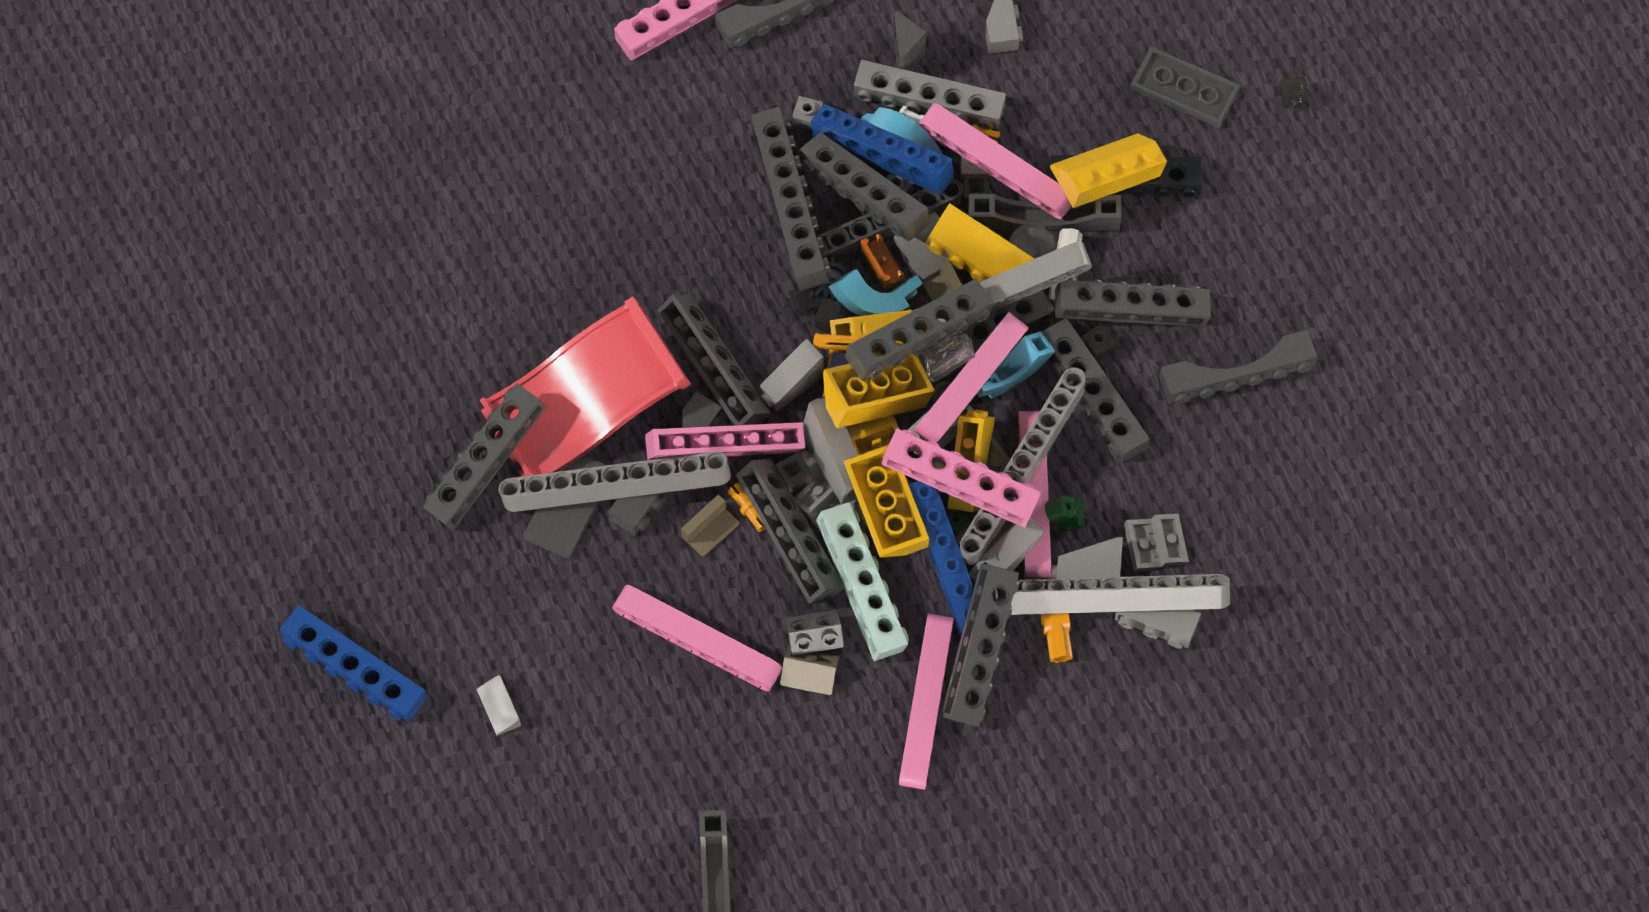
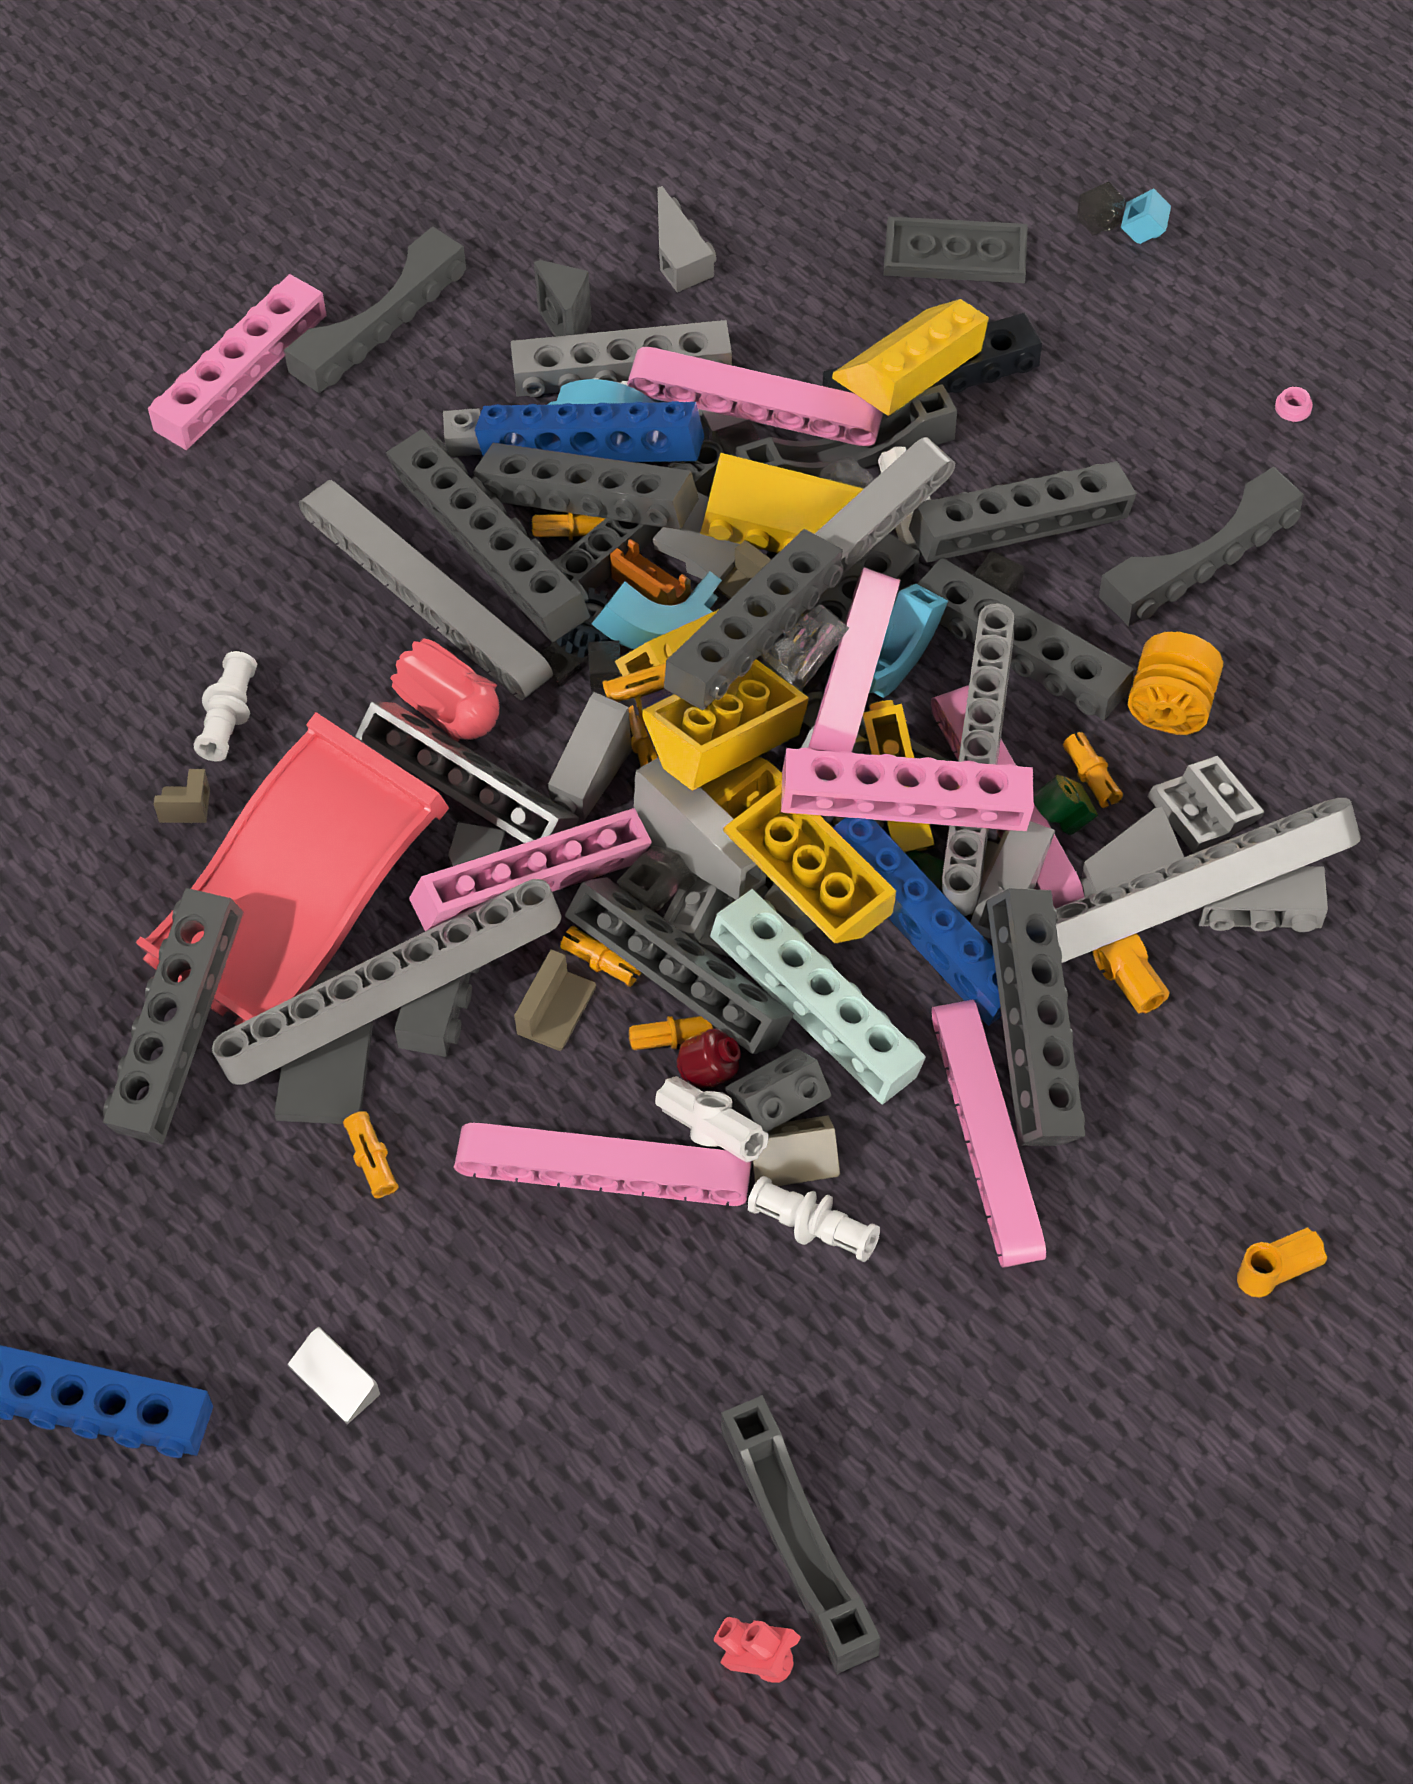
camera: 20 degrees left, 10 degrees down
(542, 313) = (185, 803): none -> dark tan panel
(567, 582) = (362, 1132): none -> light orange pin
(588, 258) = (225, 706): none -> white piece
(725, 297) = (446, 691): none -> coral hair
(740, 218) = (427, 588): none -> light grey beam
(767, 635) = (711, 1119): none -> white piece
(768, 571) = (666, 1032): none -> light orange axle
(783, 597) = (708, 1059): none -> dark red head
(801, 716) = (813, 1219): none -> white piece
(842, 204) = (563, 525): none -> light orange axle
(1060, 842) = (1281, 1260): none -> light orange piece
(1097, 494) = (1092, 769): none -> light orange pin
(1170, 458) = (1175, 683): none -> light orange wheel
(1320, 109) = (1146, 216): none -> medium azure plate
(1352, 279) = (1294, 396): none -> bright pink plate

